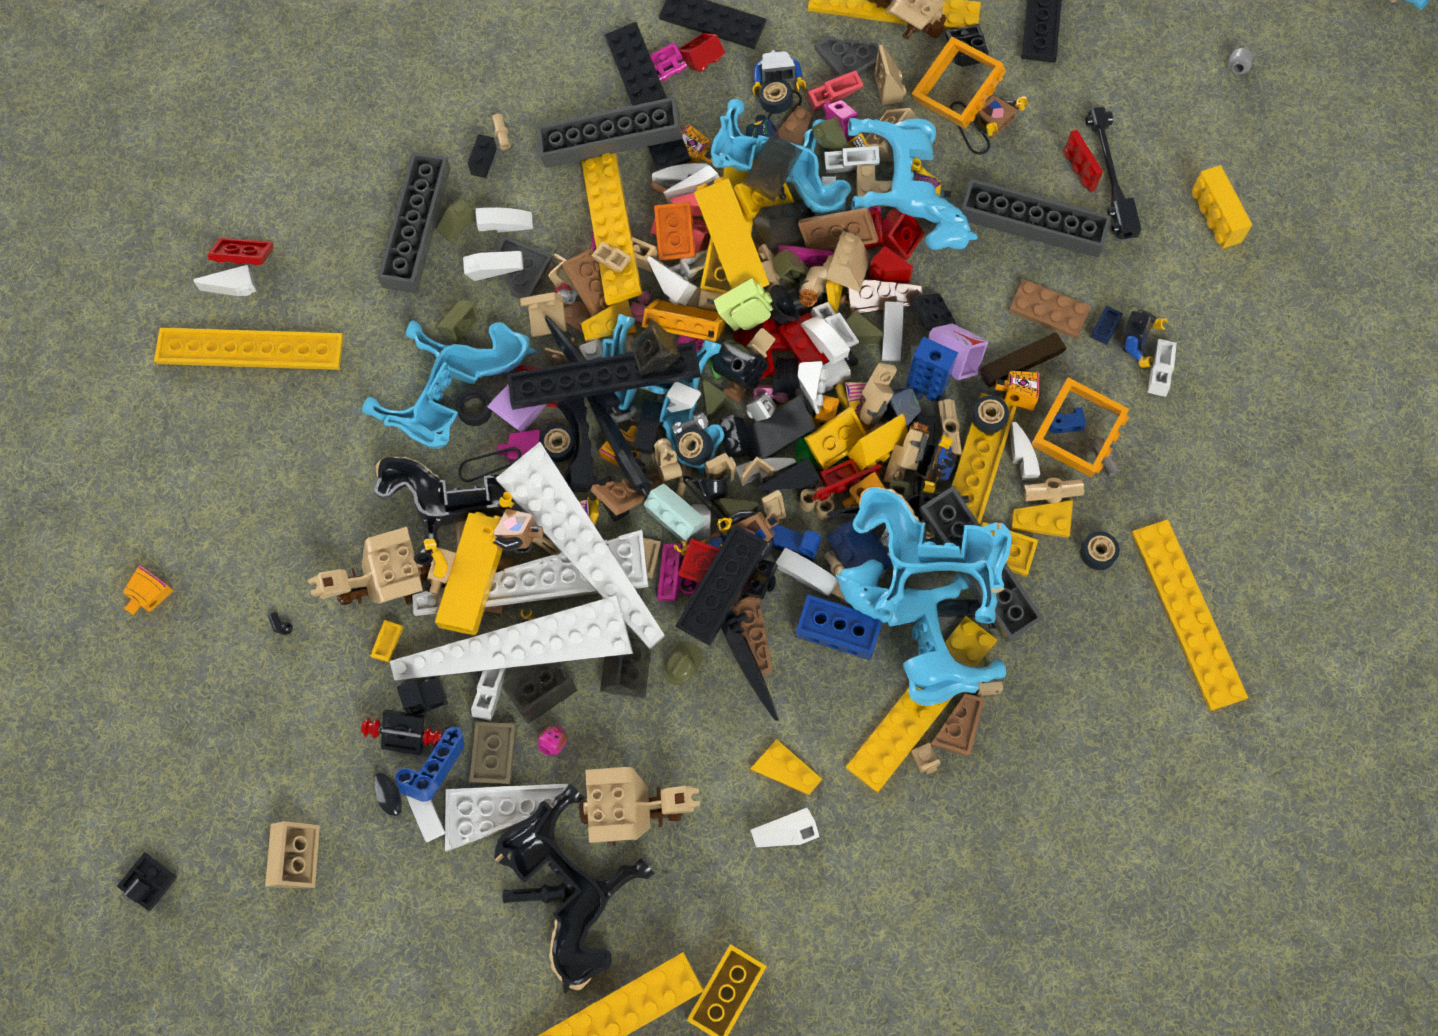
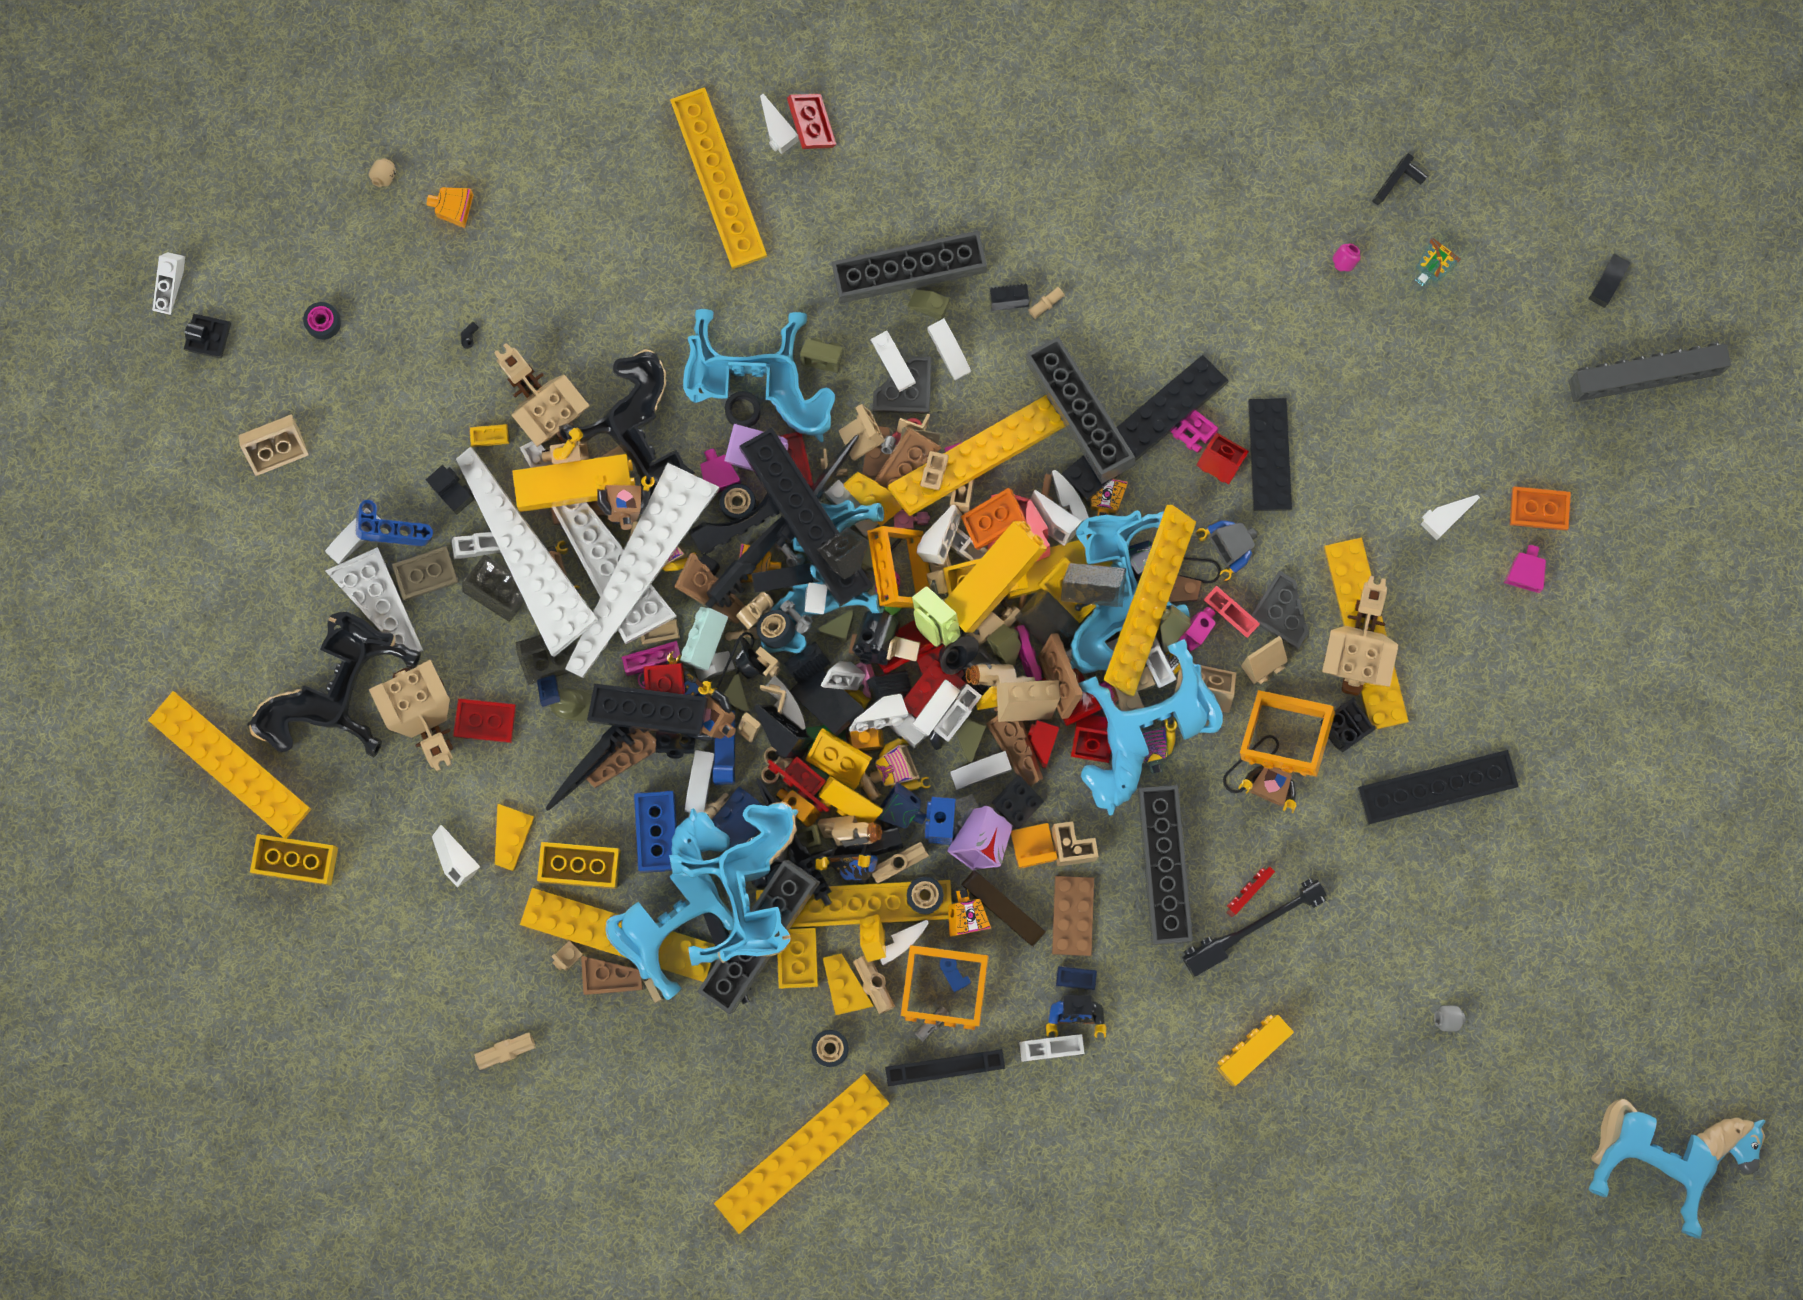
camera: 70 degrees right, 10 degrees up
(71, 901) = (168, 281): none -> white slope
(77, 644) = (382, 172): none -> tan head
(199, 766) = (315, 313): none -> wheel
(387, 795) = (350, 502): black arm -> none
(401, 732) = (411, 486): black plate -> none
(486, 455) = (697, 442): black piece -> none
(546, 894) = (321, 671): black pin -> none
(552, 740) = (455, 619): dark pink head -> none
(661, 676) = (548, 690): none -> dark blue plate
(663, 750) = (484, 720): none -> red plate
(776, 96) = (1207, 549): black wheel -> none
(803, 137) = (1150, 600): none -> yellow plate
(843, 711) = (579, 865): none -> yellow brick
(877, 395) = (893, 779): tan plate -> none
(978, 315) = (1033, 845): none -> light orange bracket
(989, 285) = (1070, 850): none -> tan brick
(998, 853) = (505, 1051): none -> tan piece
(1013, 471) = (872, 938): none -> yellow brick
(1149, 469) = (945, 1067): none -> black arch

